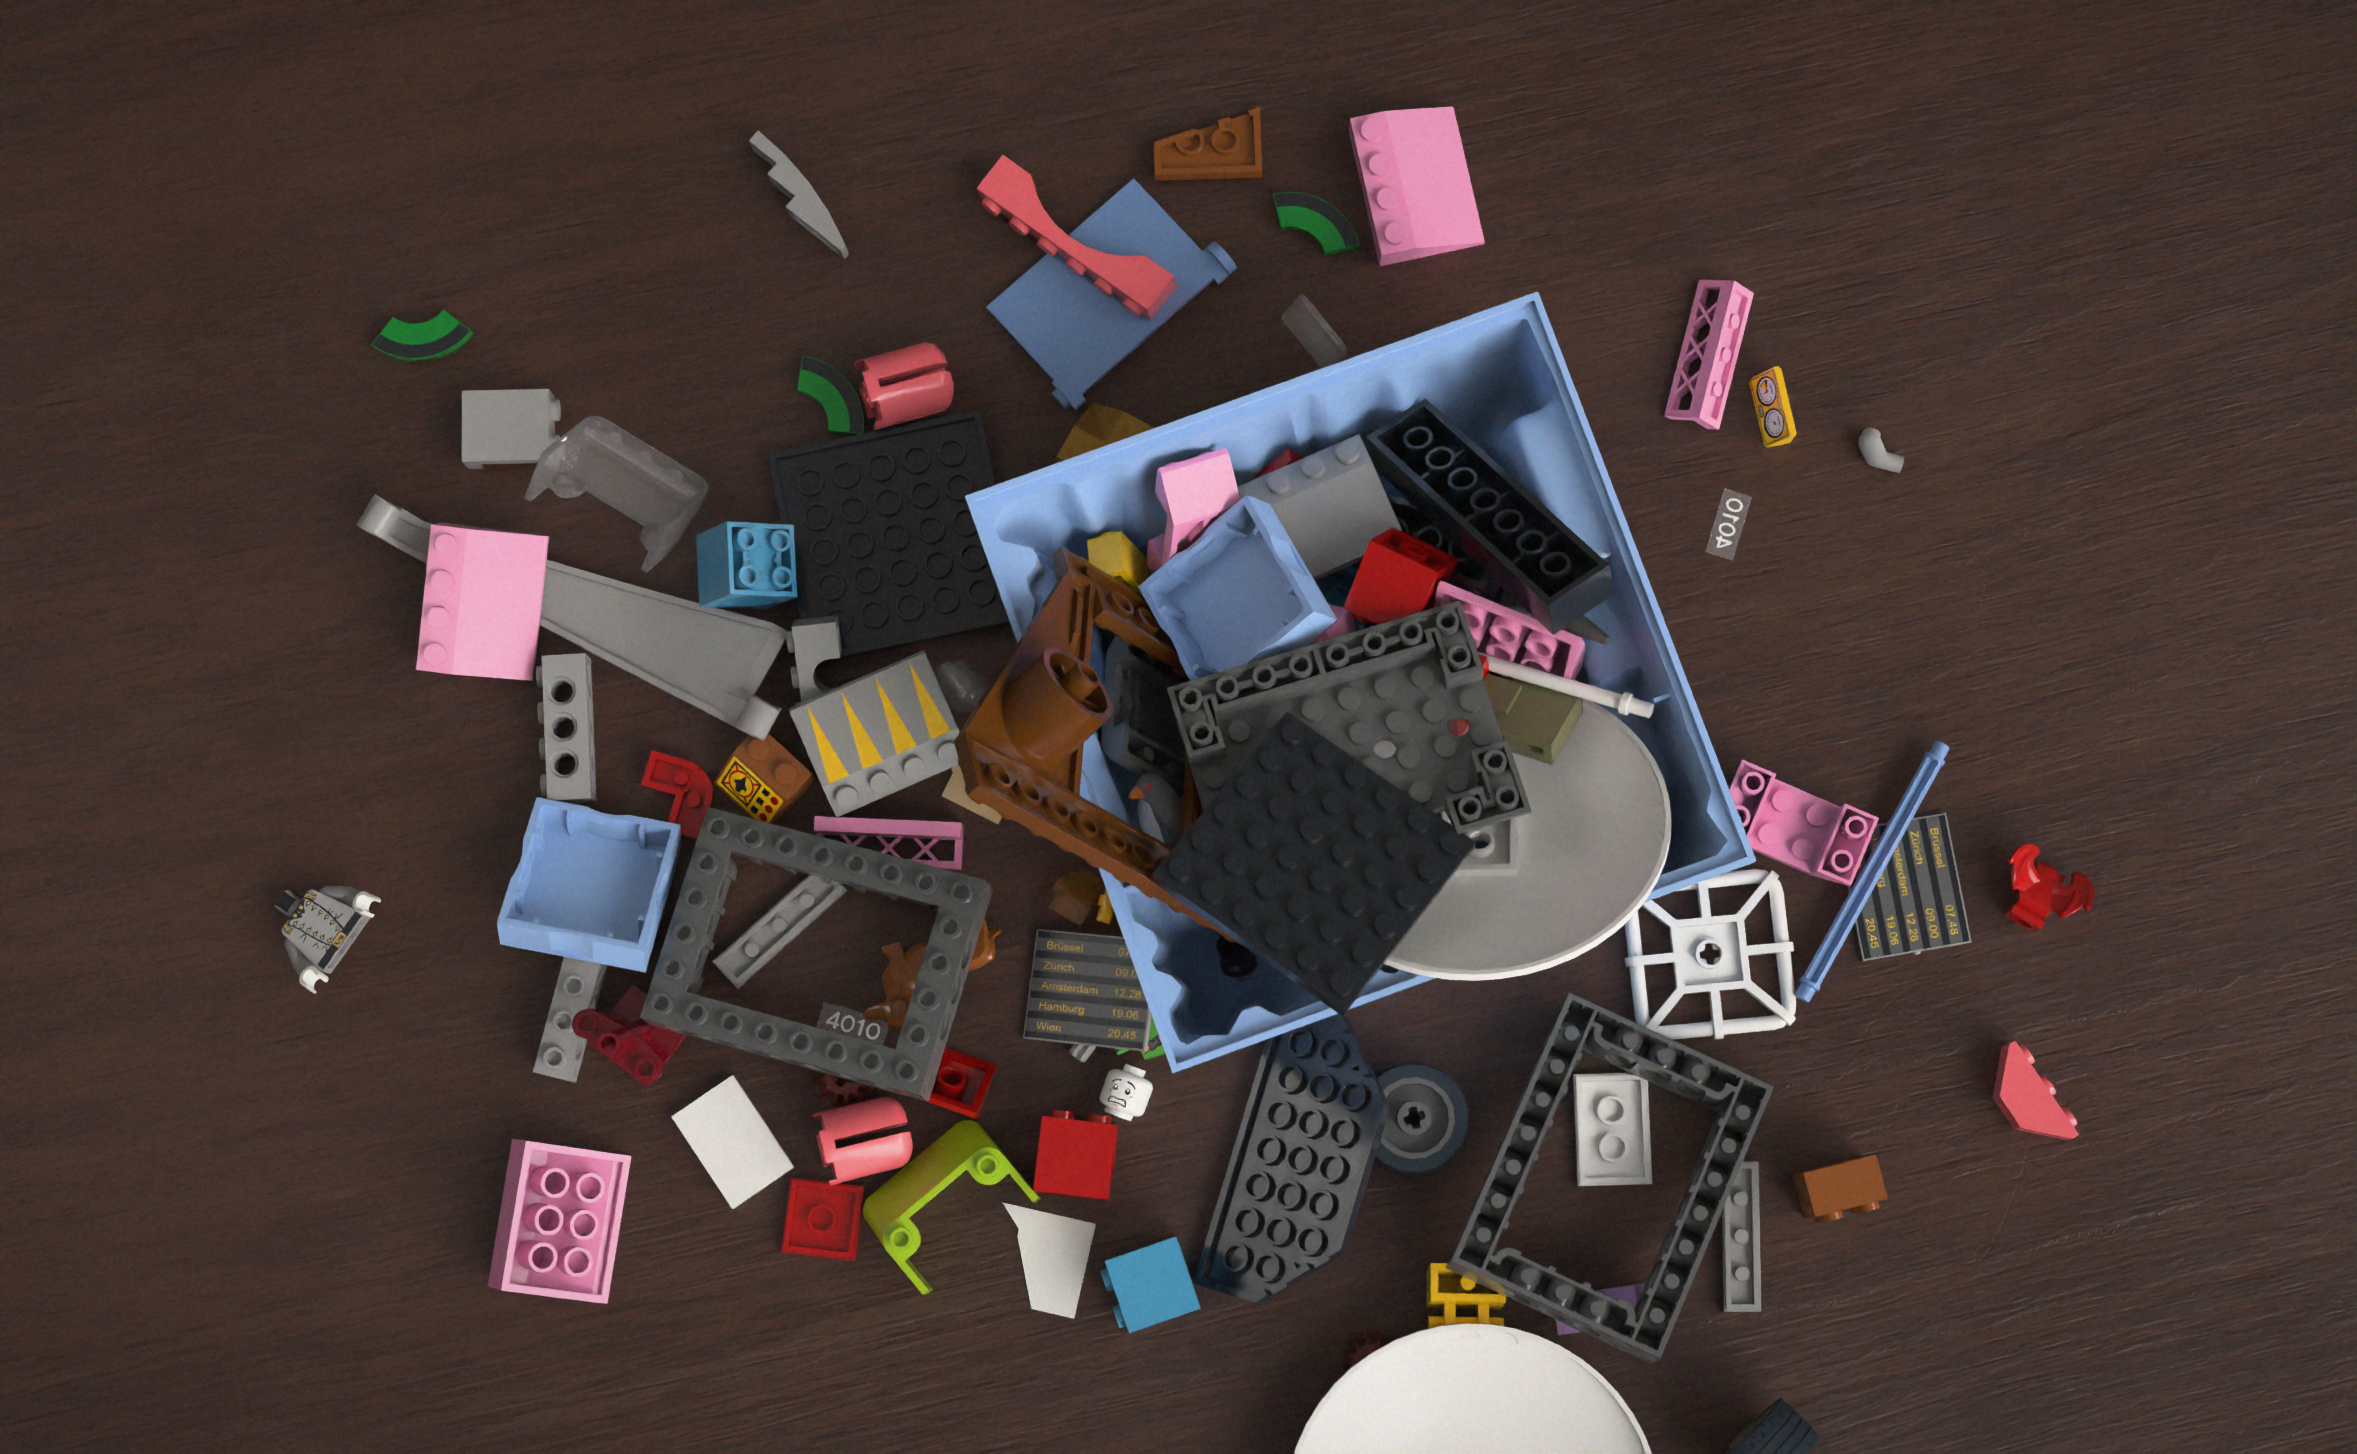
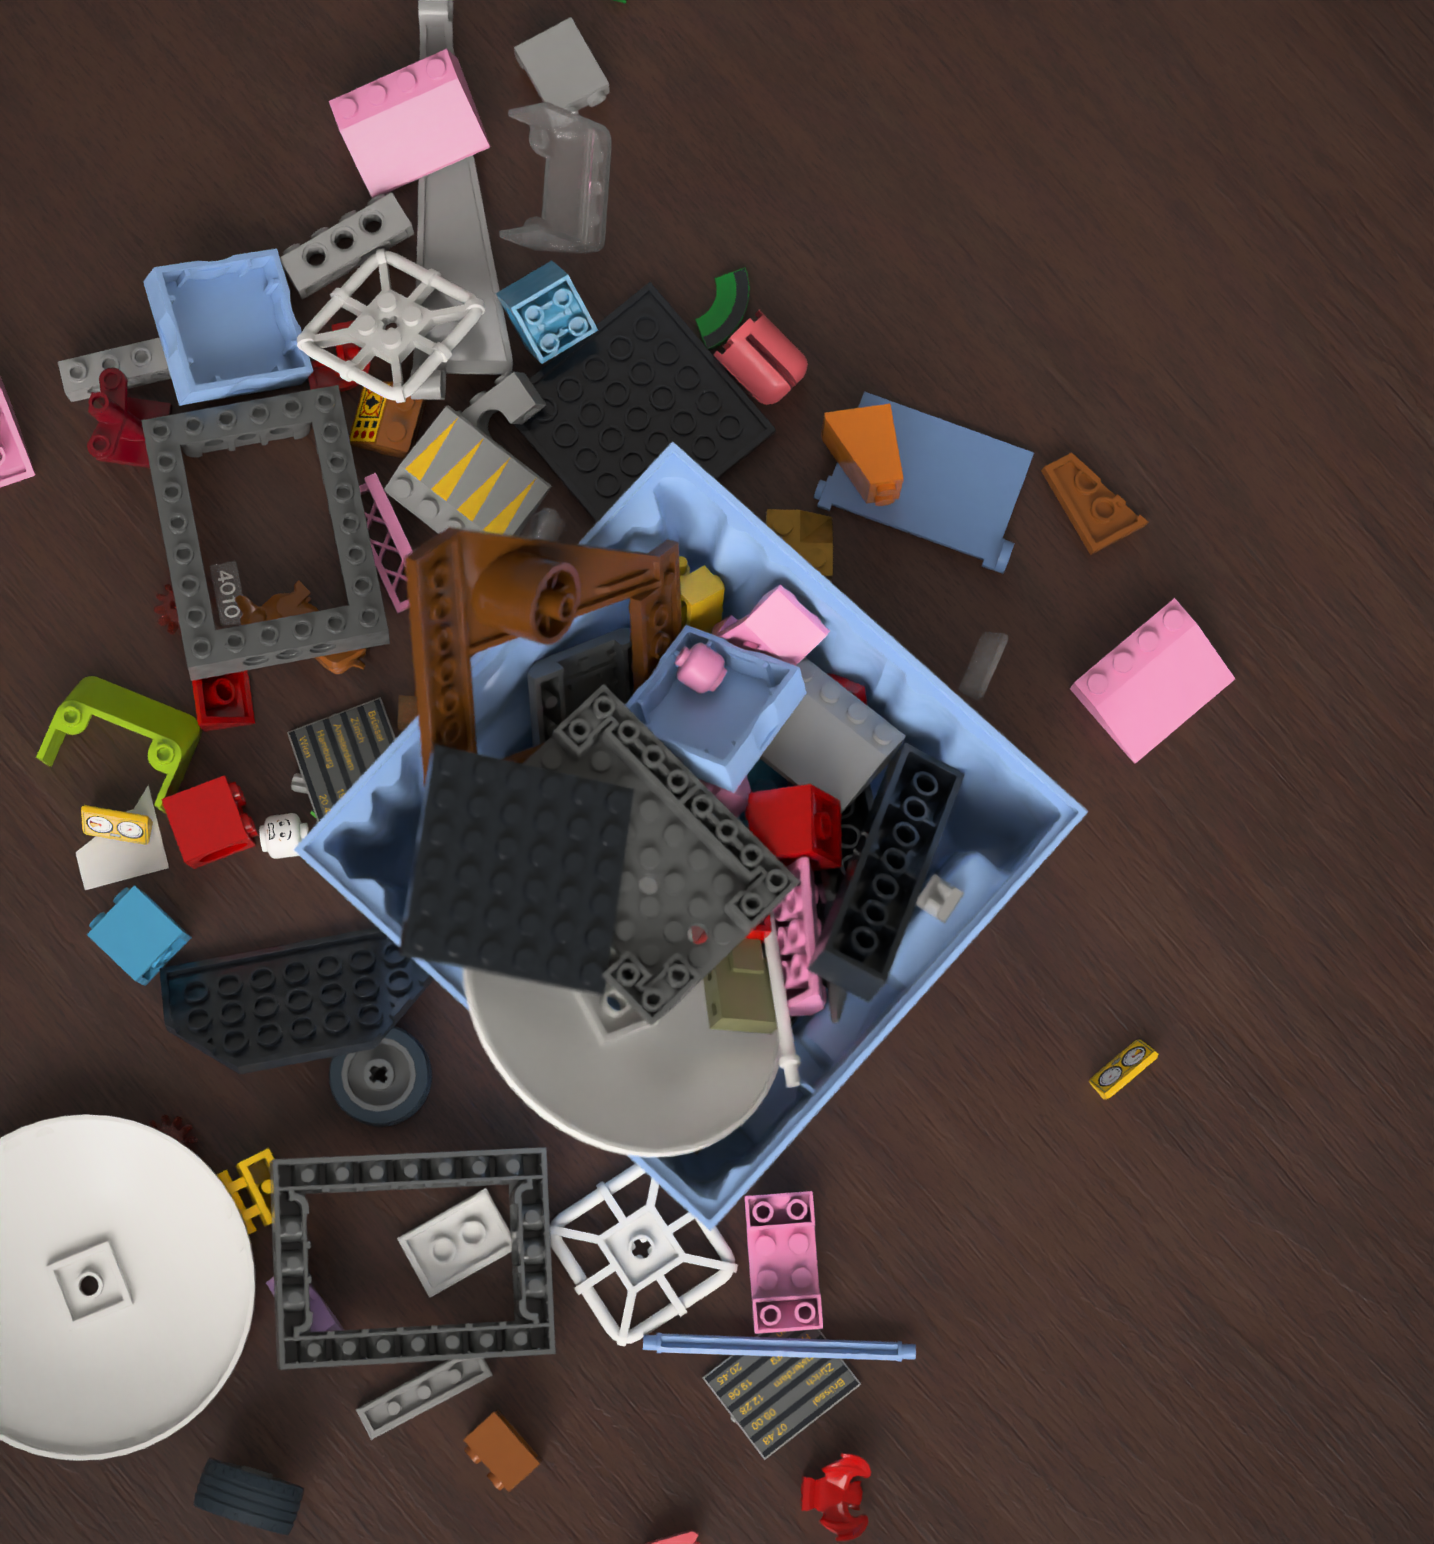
camera: 55 degrees right, 0 degrees up
(322, 928) = (88, 141): light grey torso -> none
(657, 719) = (390, 307): none -> white plate
(733, 1142) = (86, 548): white tile -> none
(777, 928) = (272, 492): light grey tile -> none
(805, 203) = (871, 203): light grey slope -> none
(822, 1219) = (62, 650): red tile -> none
(869, 1156) = (150, 634): coral cylinder -> none
(1027, 1253) = (116, 825): none -> slope
(1052, 331) = (866, 450): none -> orange slope
(1133, 279) = (947, 495): coral arch -> none
(1158, 808) = (510, 733): dark grey animal -> none
(1191, 593) = (700, 668): none -> bright pink head
(1316, 219) = (1080, 618): green tile -> none
(1544, 477) = (939, 898): none -> light grey tile
(1716, 351) = (1143, 999): bright pink fence -> none
(1728, 524) = (1007, 1083): clear sticker -> none
(1875, 452) = (1131, 1173): light grey arm -> none

